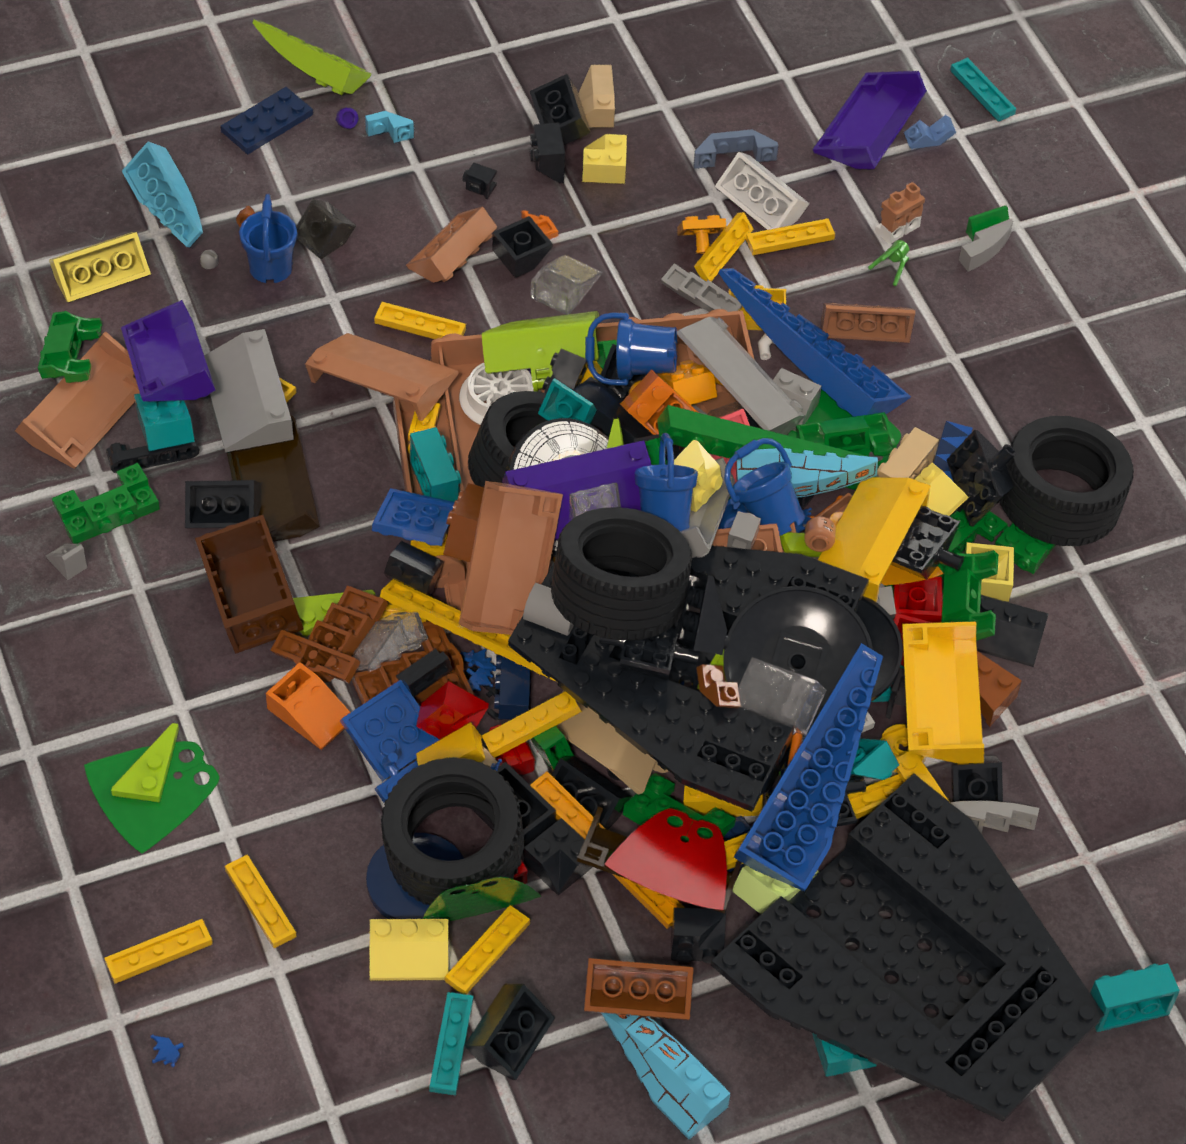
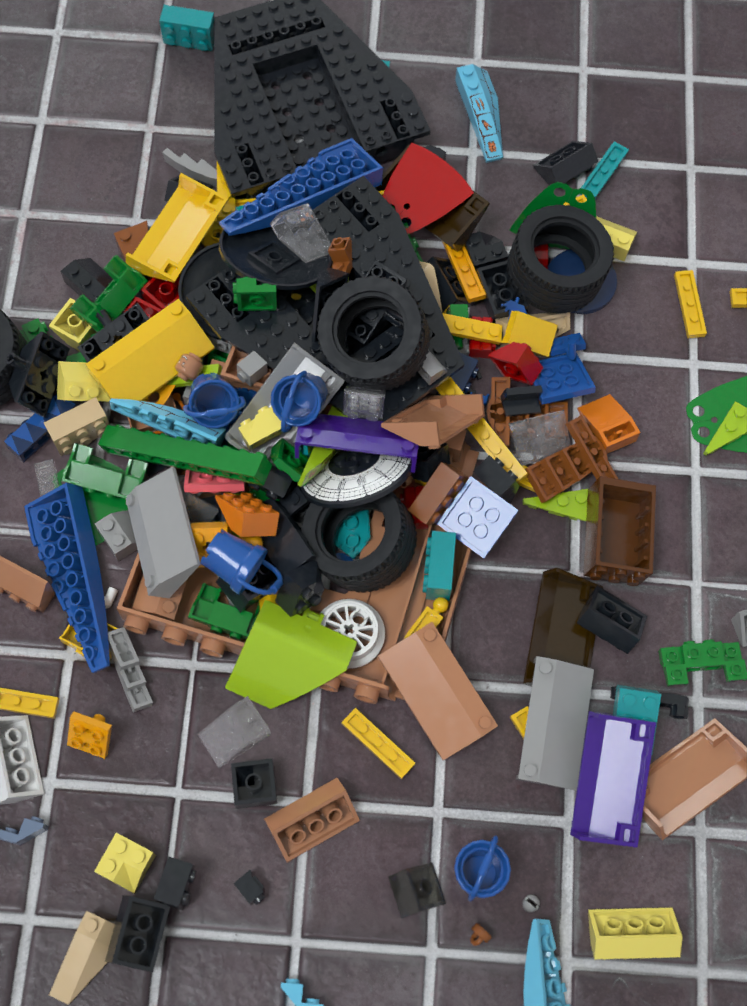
camera: 155 degrees left, 15 degrees up
(63, 346) = (696, 840): green bracket -> none
(543, 223) = (222, 813): orange tile -> none
(566, 403) = (321, 537): teal slope -> none
(638, 989) = (477, 150): dark orange slope -> none
(723, 247) = (88, 708): yellow plate -> none
(789, 573) = (252, 296): none -> green plate
(902, 421) = (46, 476): none -> clear plate

